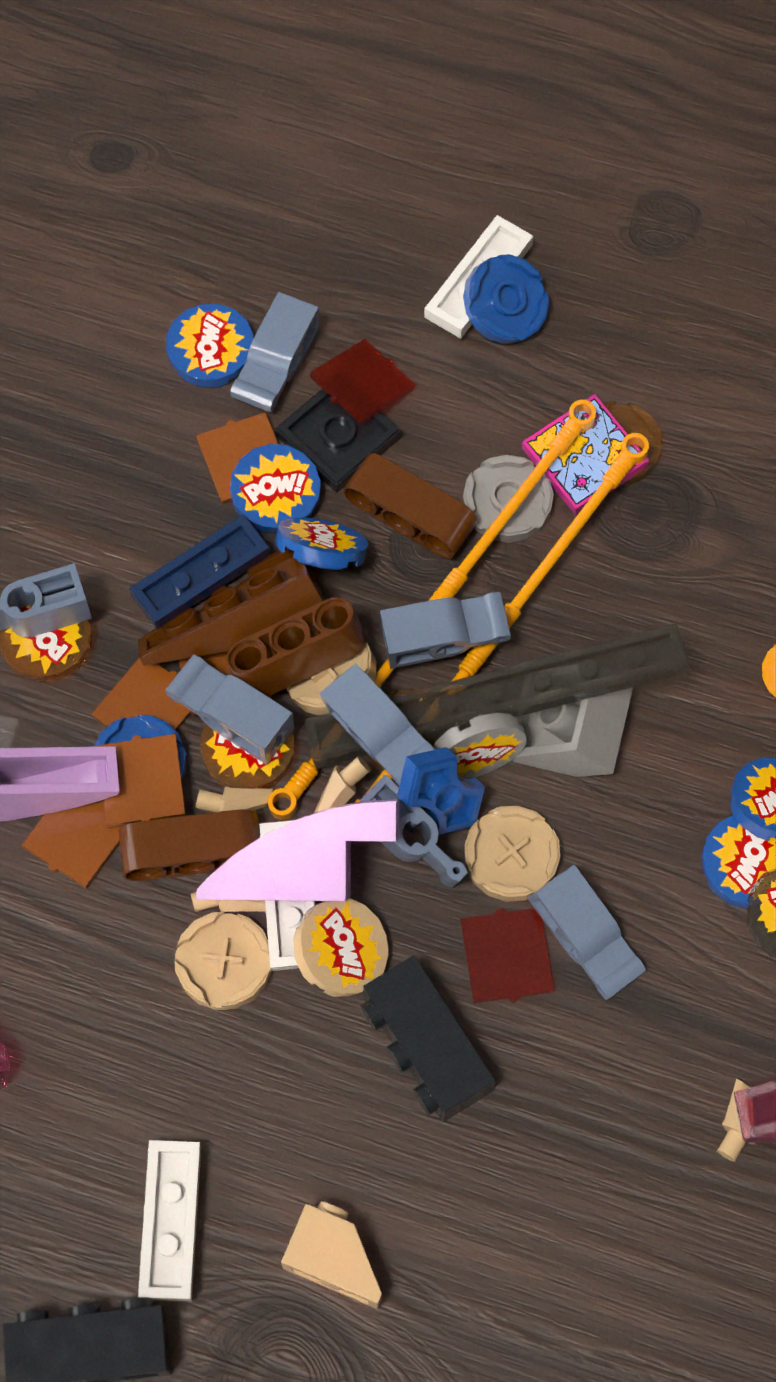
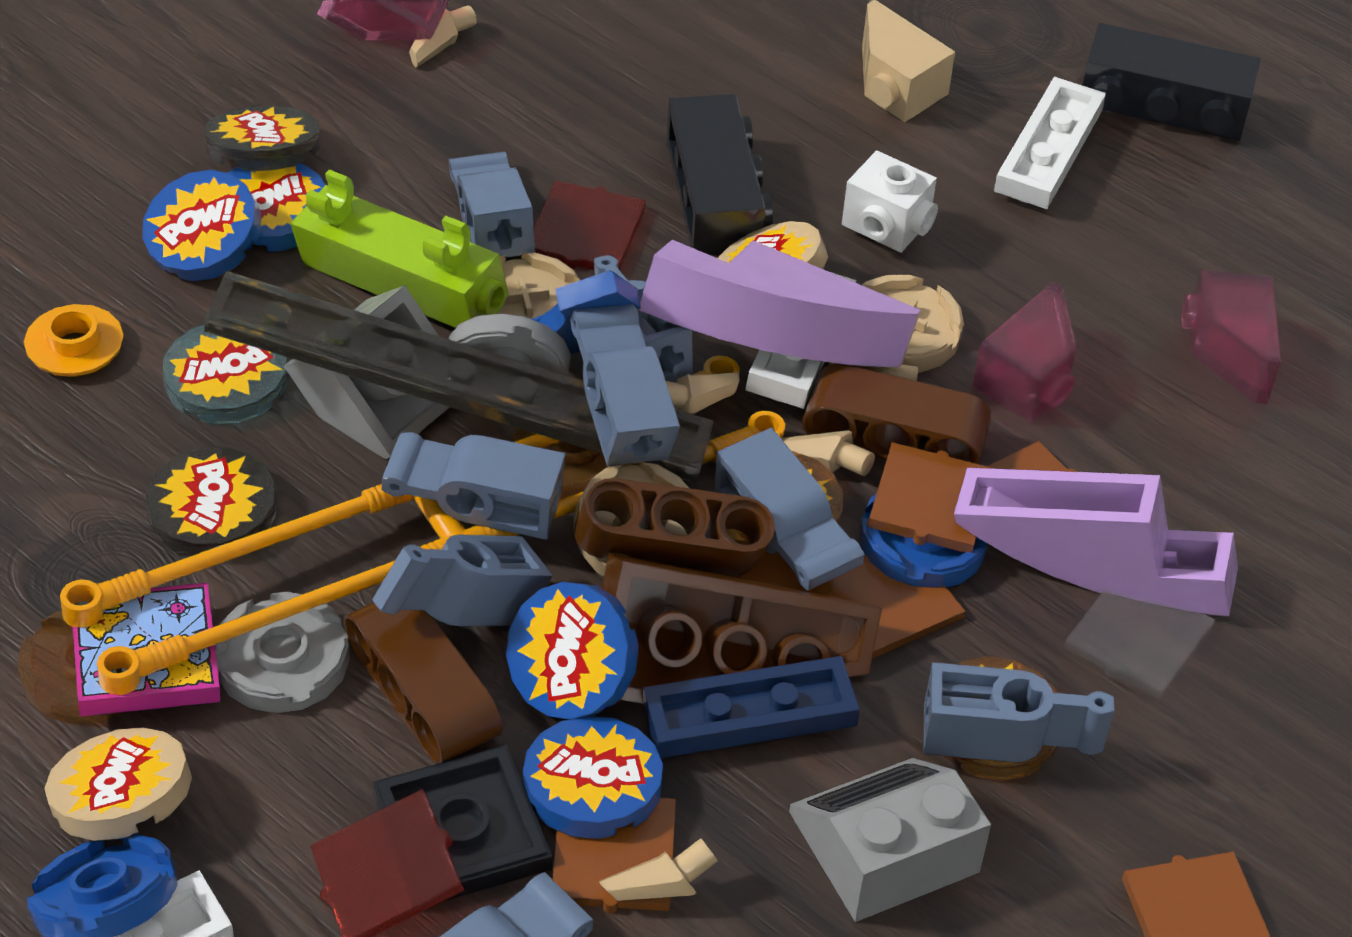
camera: 160 degrees left, 20 degrees down
(83, 520) = (894, 834): none -> light grey slope
(111, 948) = (1030, 357): none -> clear pink slope
(203, 436) = (662, 875): none -> tan bar
(281, 1074) = (890, 201): none -> white brick
(396, 574) = (466, 582): none -> sand blue piece
(541, 364) = (118, 782): none -> tile
(611, 819) = (388, 250): none -> lime brick
(618, 582) = (210, 499): none -> tile
(686, 701) = (221, 377): none -> tile

